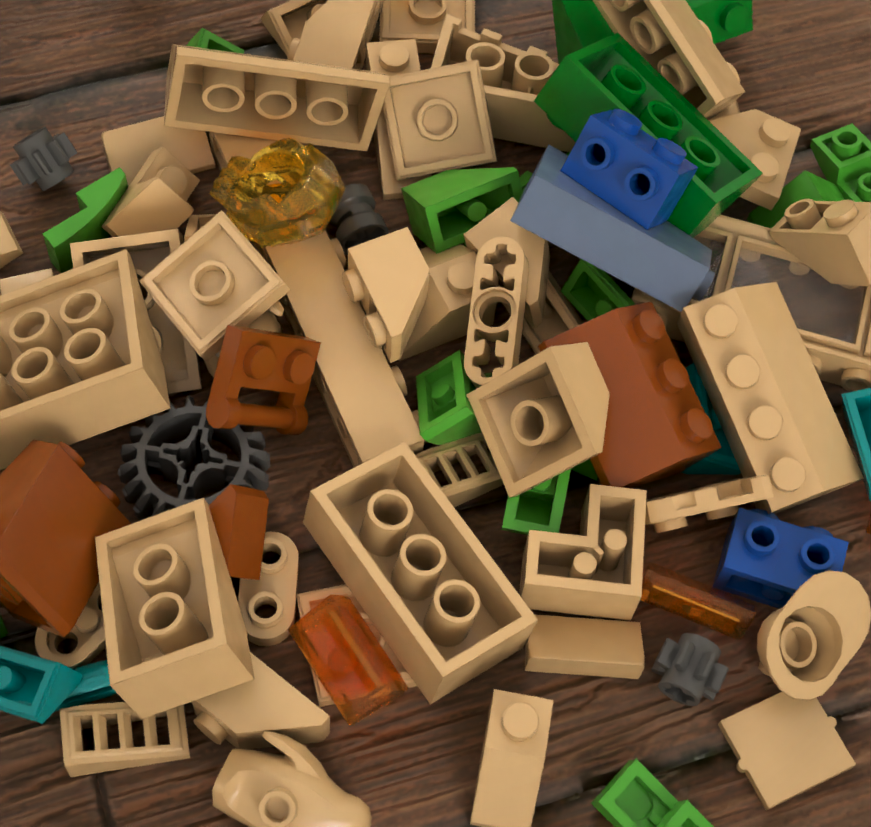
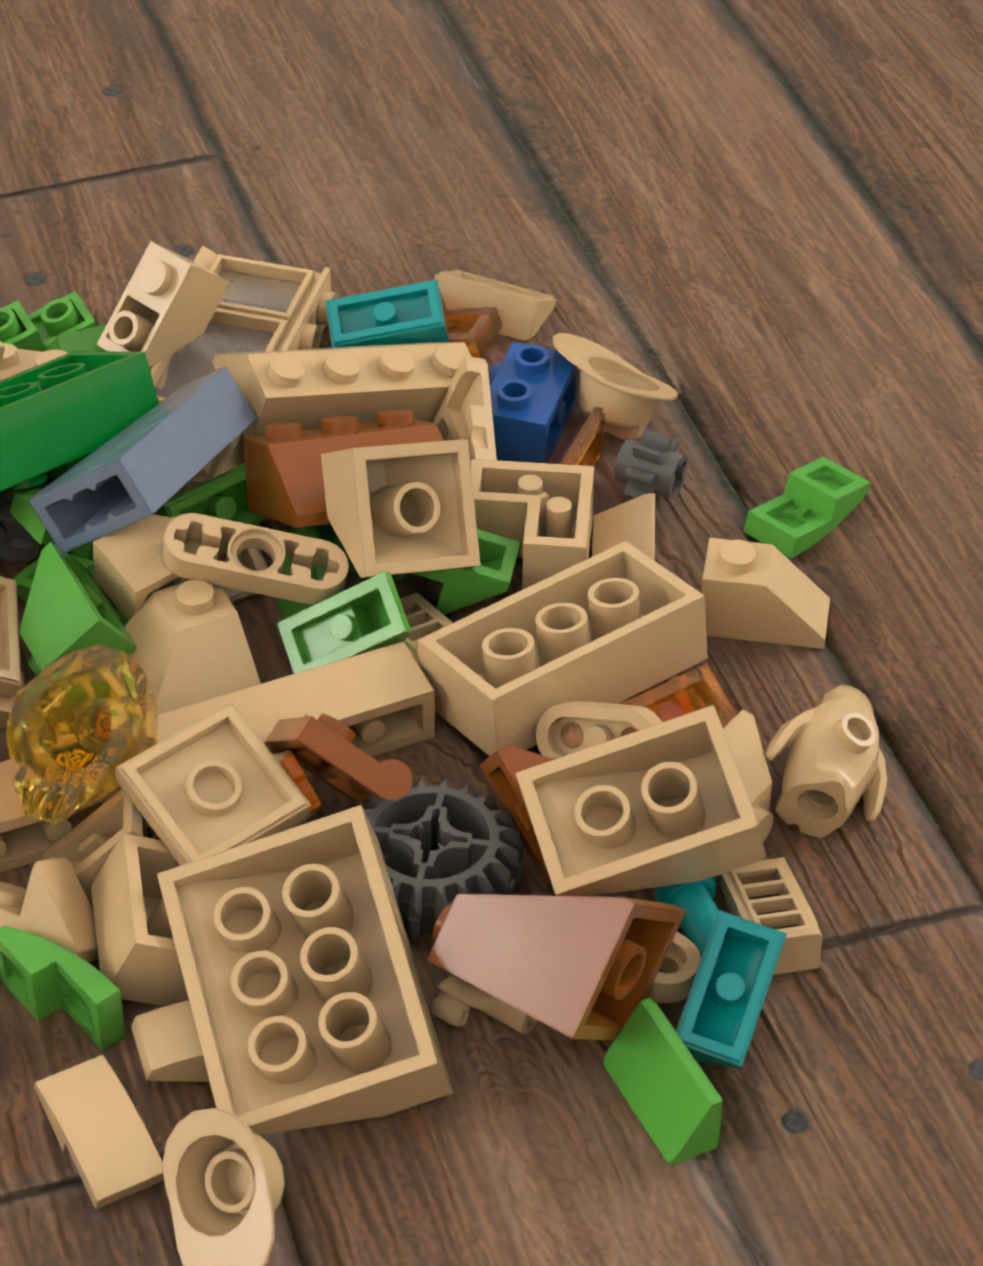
camera: 85 degrees left, 20 degrees down
(289, 606) = (597, 720): none -> tan plate
(392, 287) = (220, 646): tan slope -> none
(629, 167) = (97, 406): blue brick -> none
(785, 747) = (714, 426): tan piece -> none

